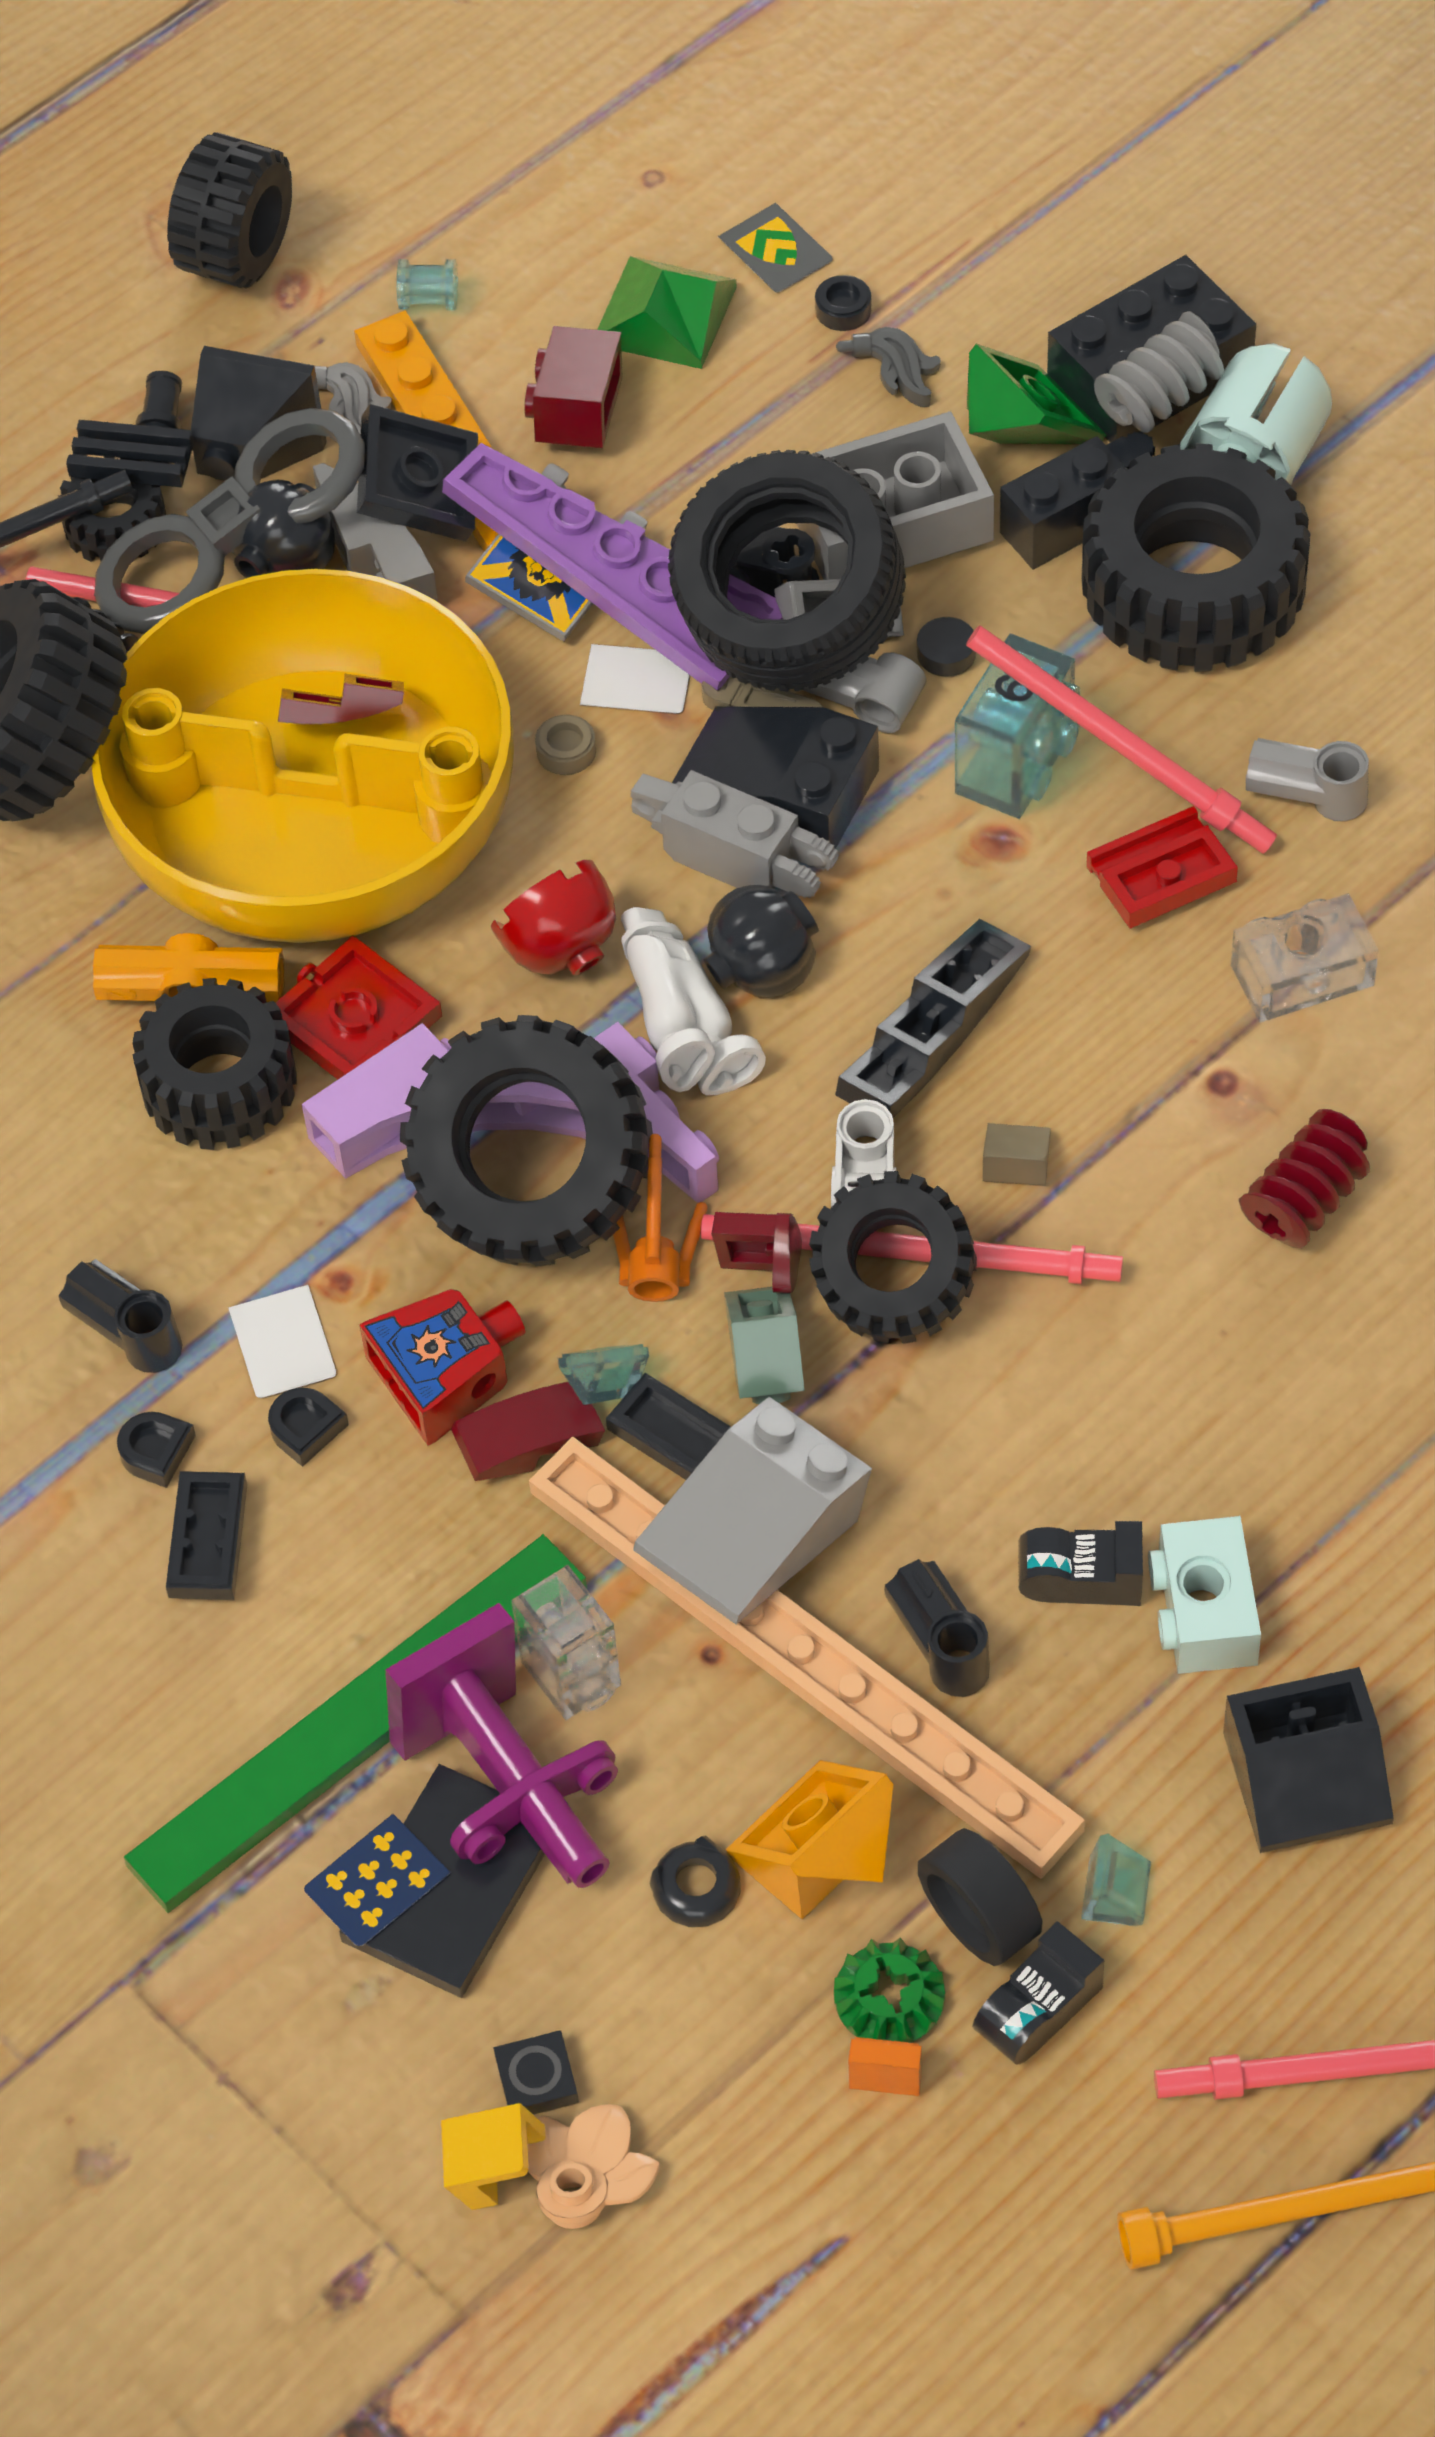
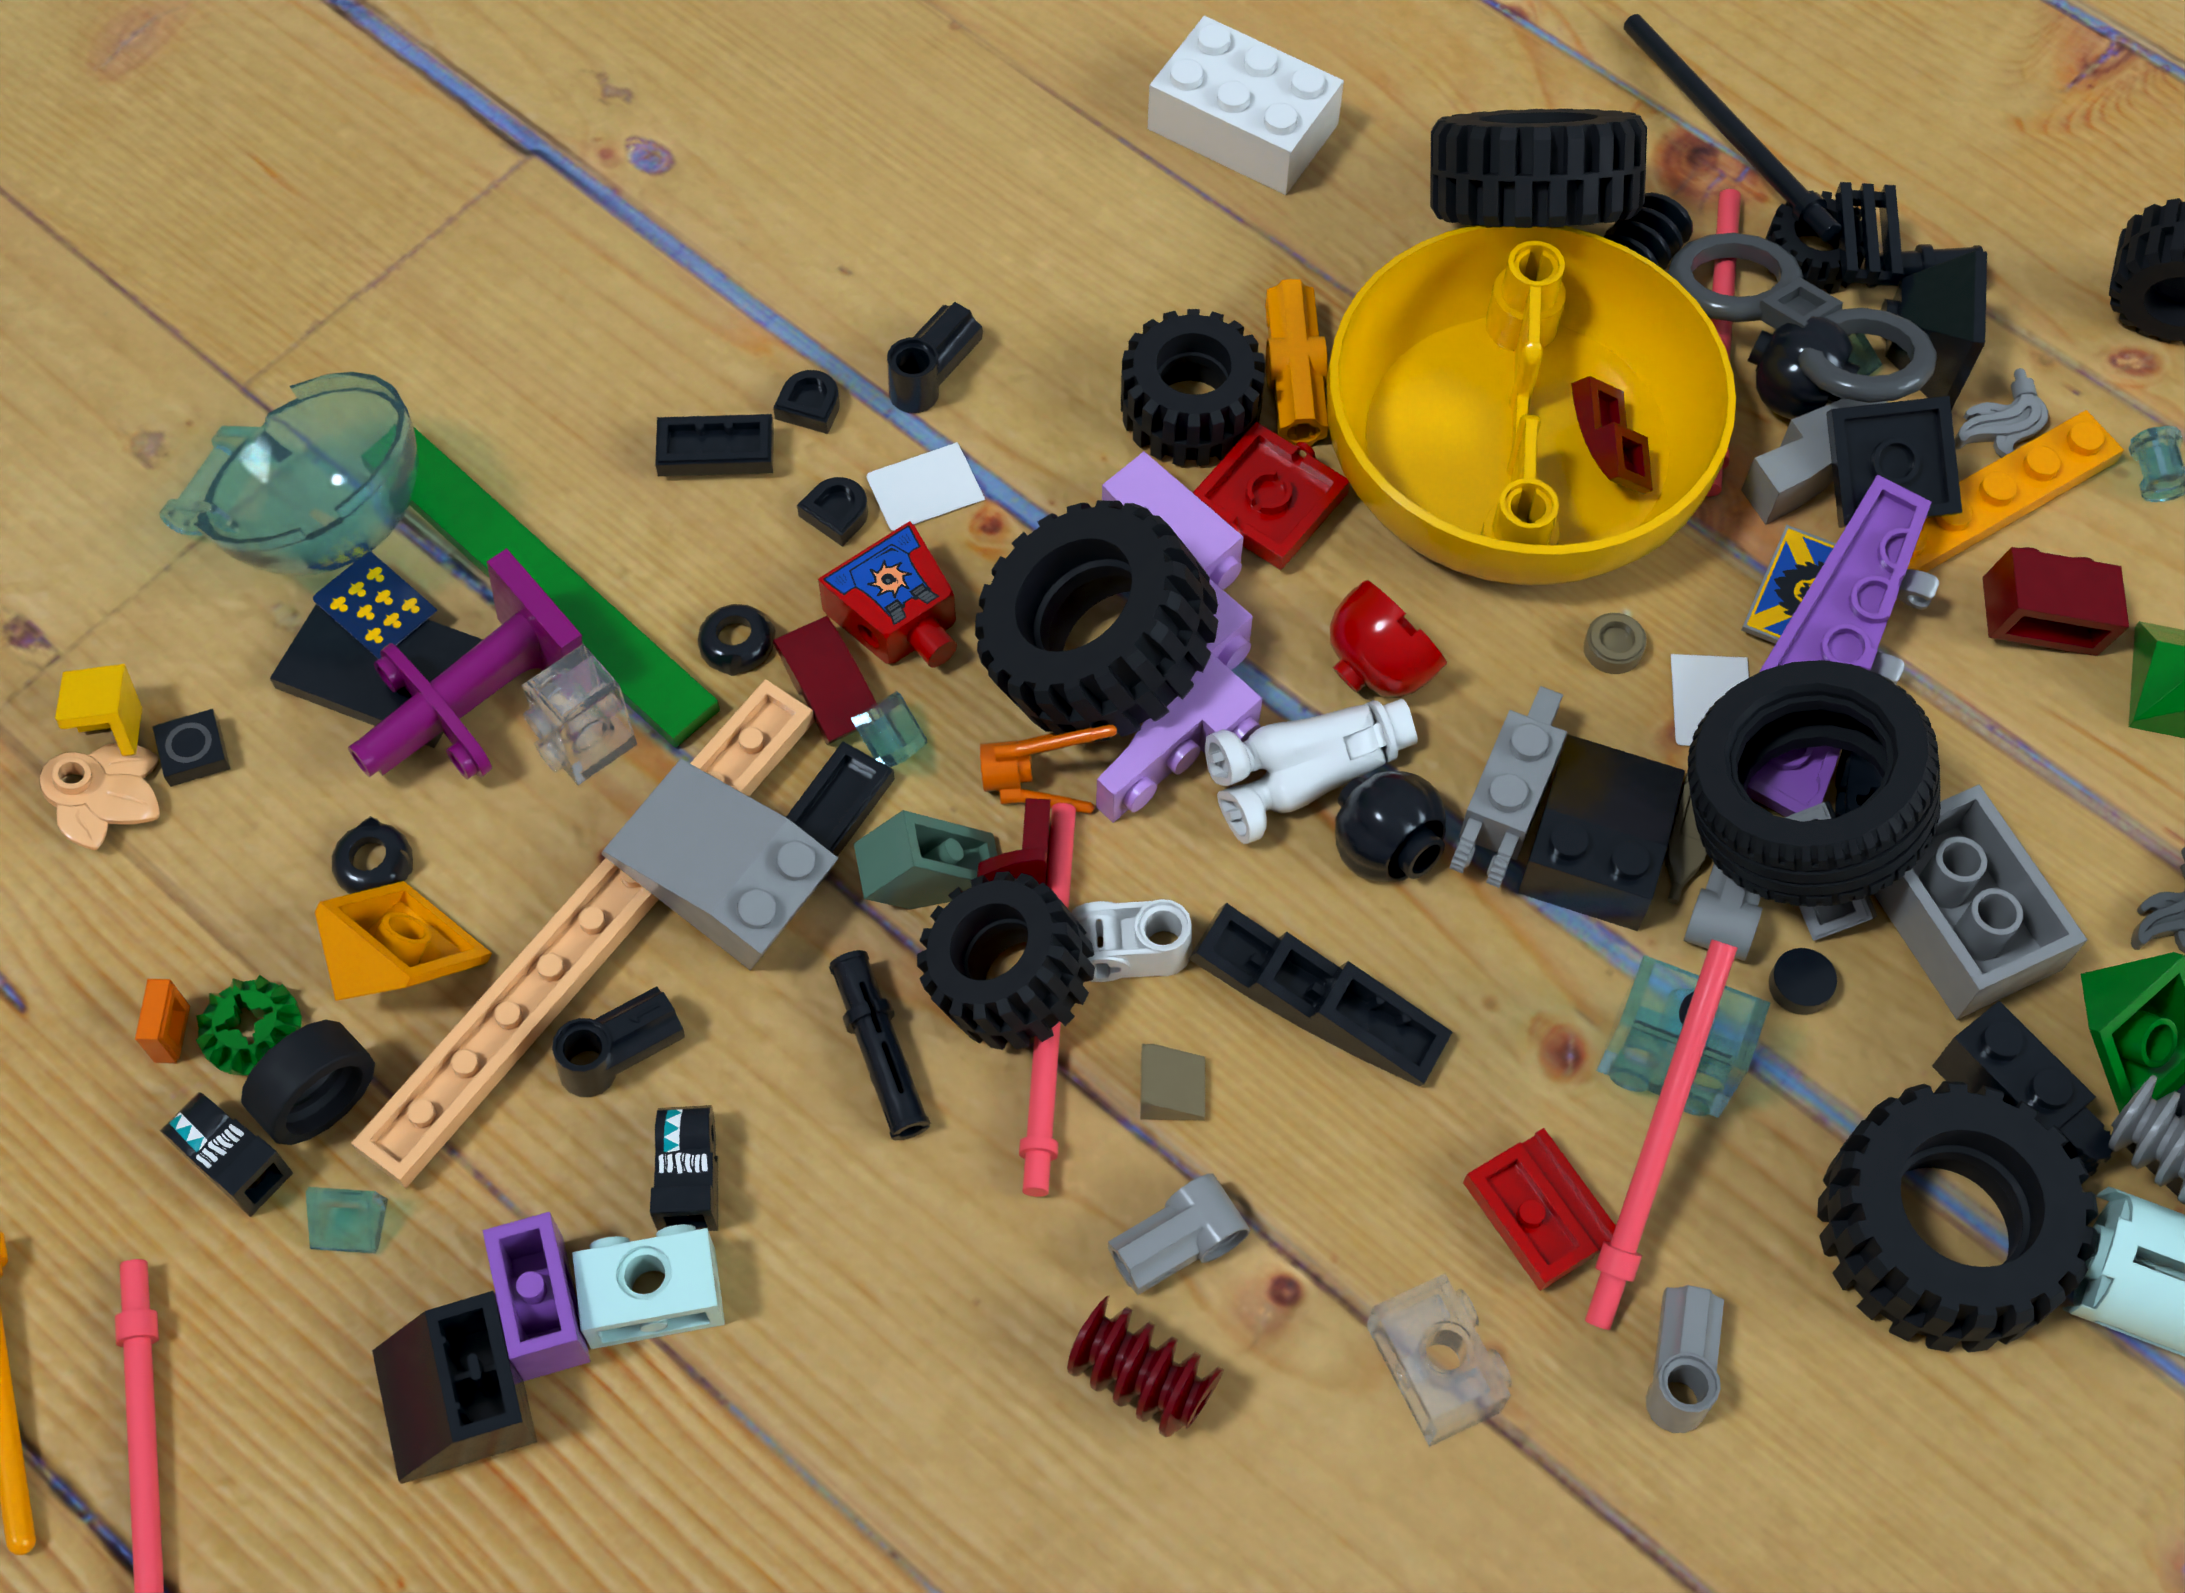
camera: 80 degrees right, 5 degrees up
(220, 1922) = (310, 483): none -> clear light blue windscreen
(462, 1549) = (739, 657): none -> black piece
(943, 1397) = (870, 1021): none -> black pin
(1169, 1139) = (1193, 1226): none -> light grey piece
(1194, 1676) = (536, 1296): none -> medium lavender brick

